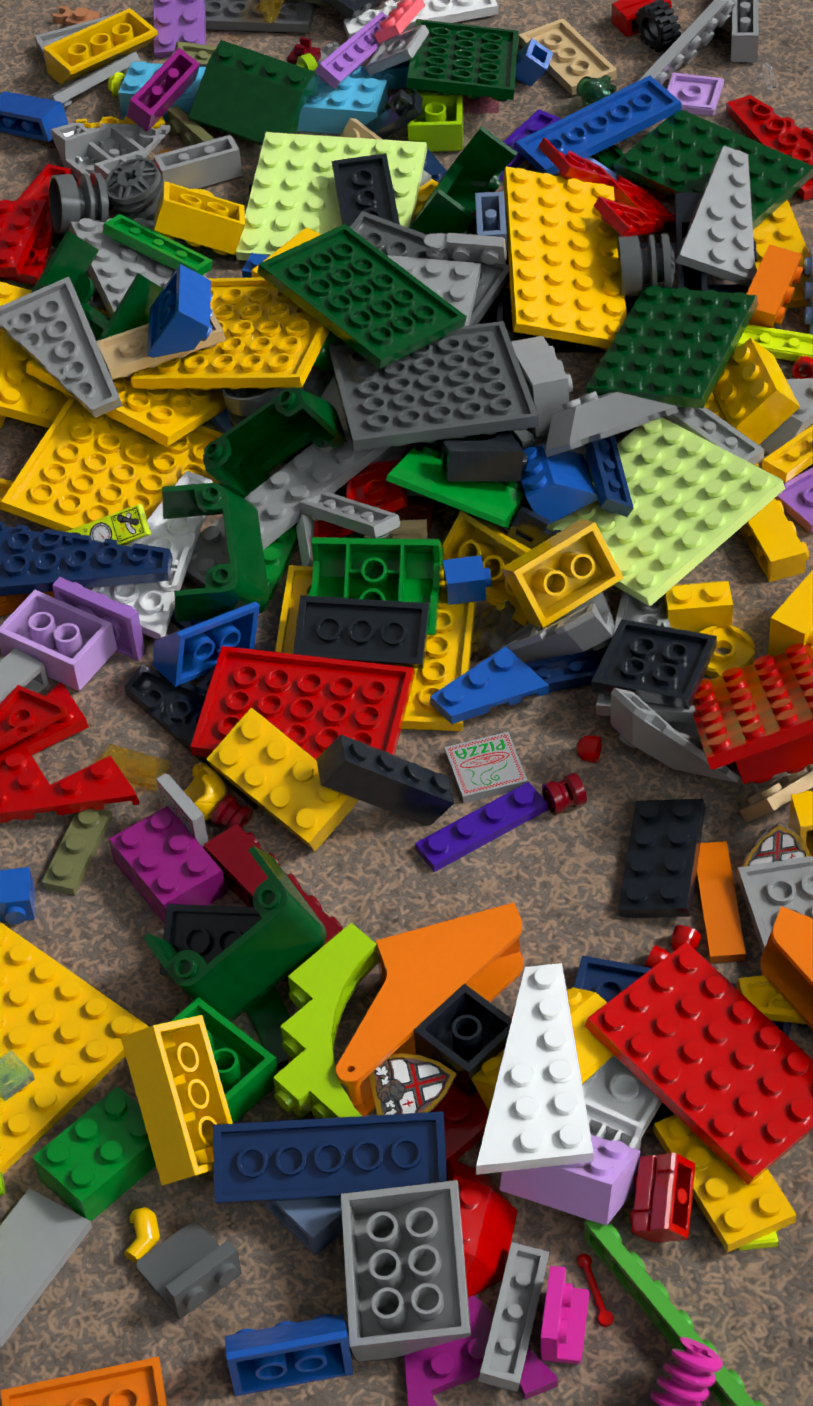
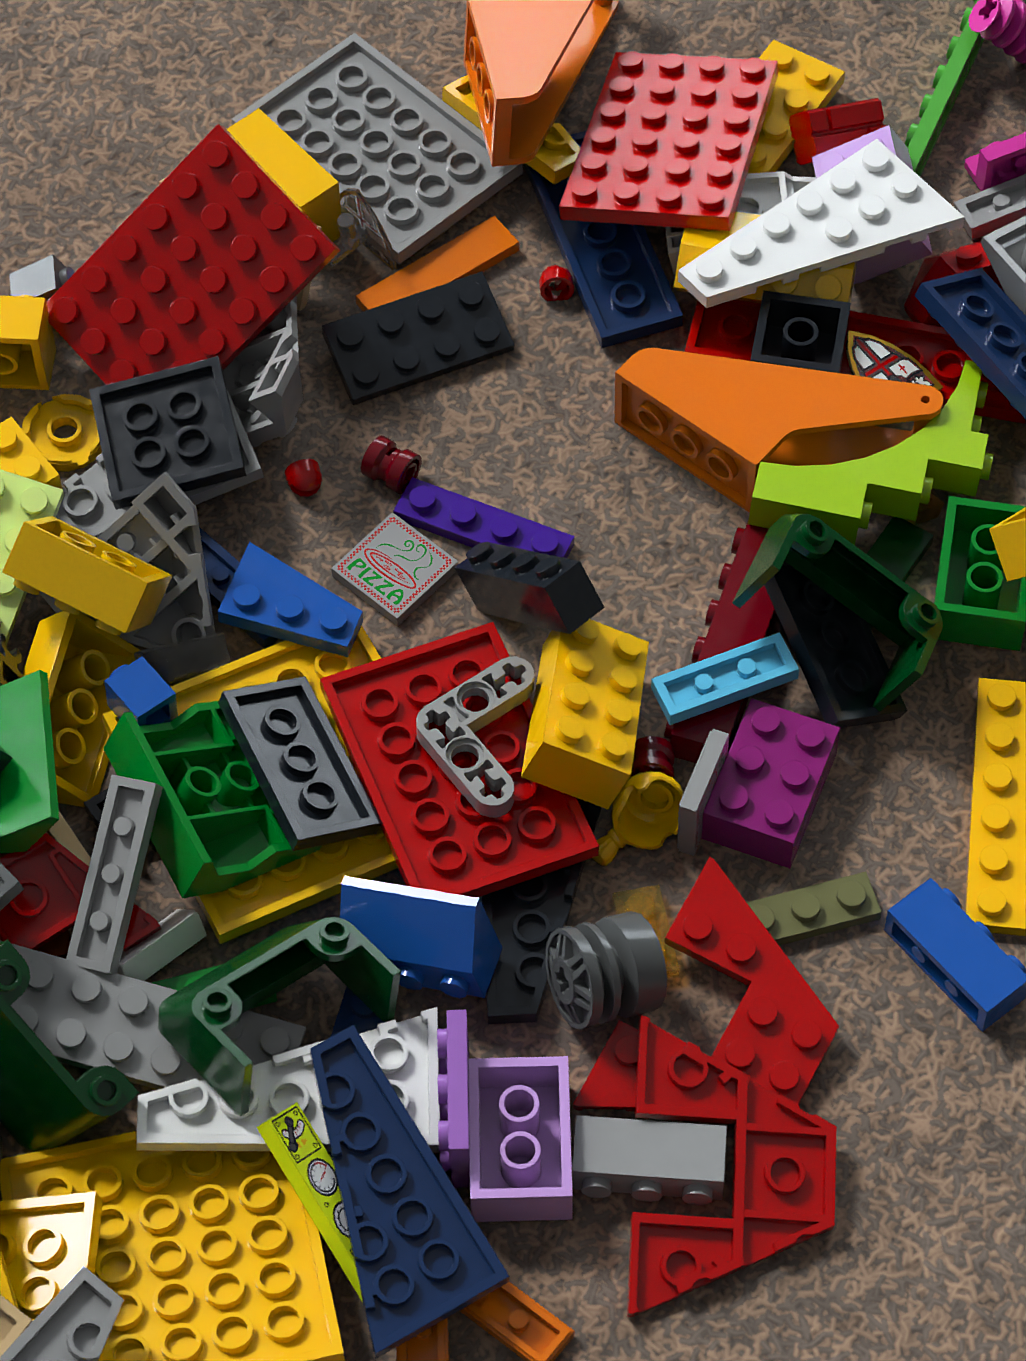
camera: 125 degrees left, 10 degrees up
(110, 710) = (606, 970): none -> dark grey wheel
(239, 868) = (724, 678): none -> medium azure plate
(321, 711) = (462, 725): none -> light grey beam
(605, 1317) = (974, 145): red hinge -> none
(684, 934) = (513, 272): red hinge -> none

